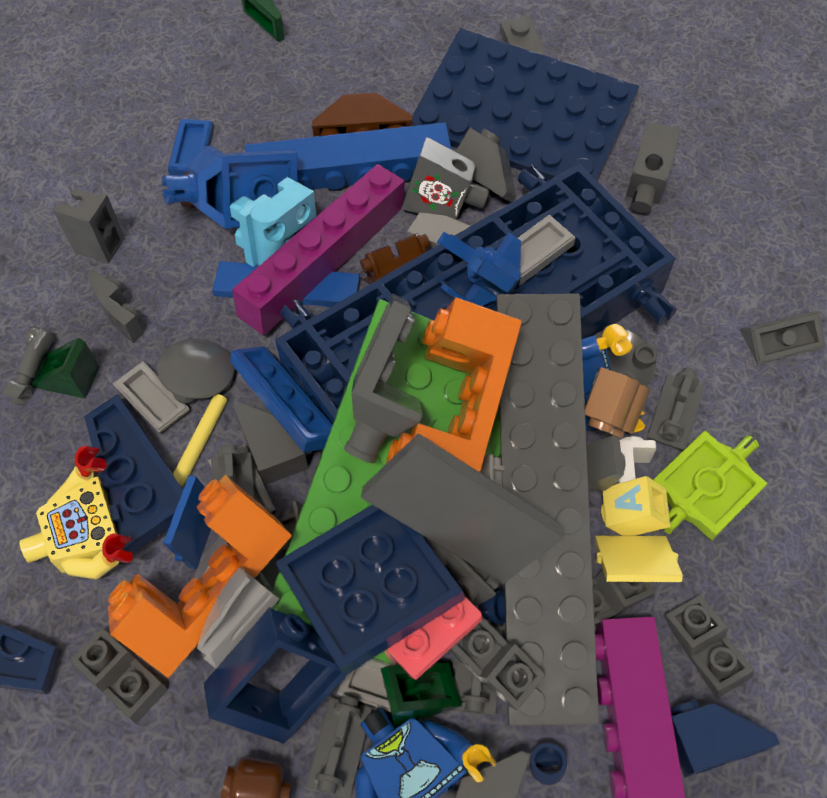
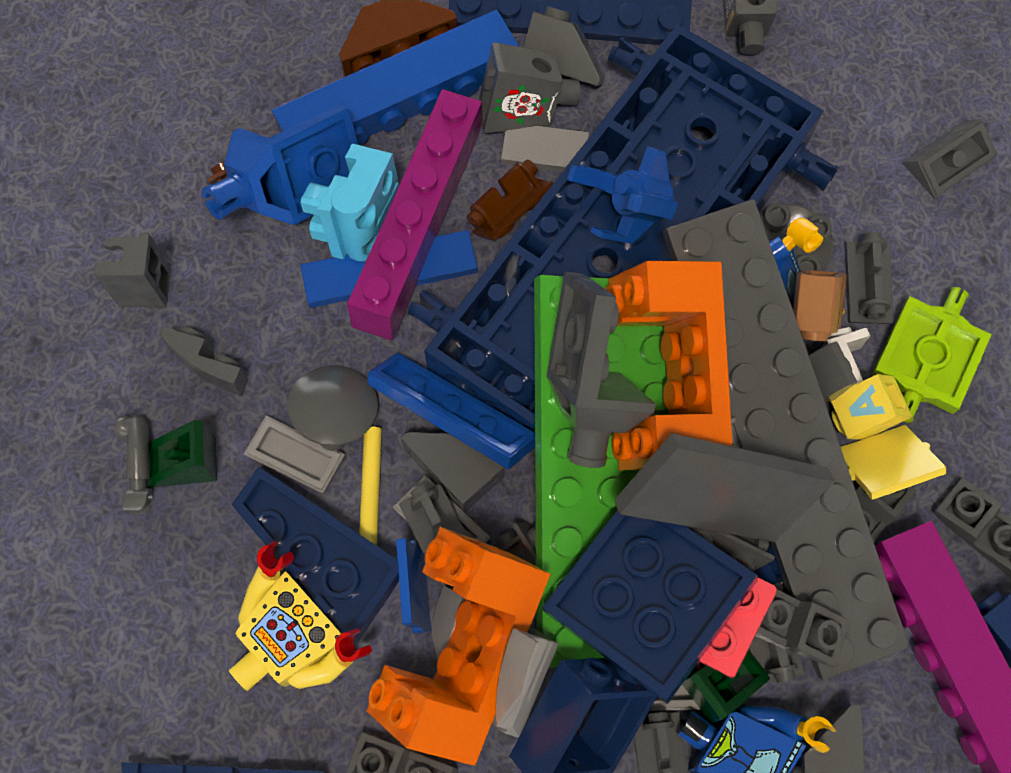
camera: 20 degrees left, 10 degrees up
(189, 141) = (198, 127): blue tile -> none
(542, 245) = (679, 136): light grey tile -> none
(545, 756) = (869, 697): dark blue hinge -> none

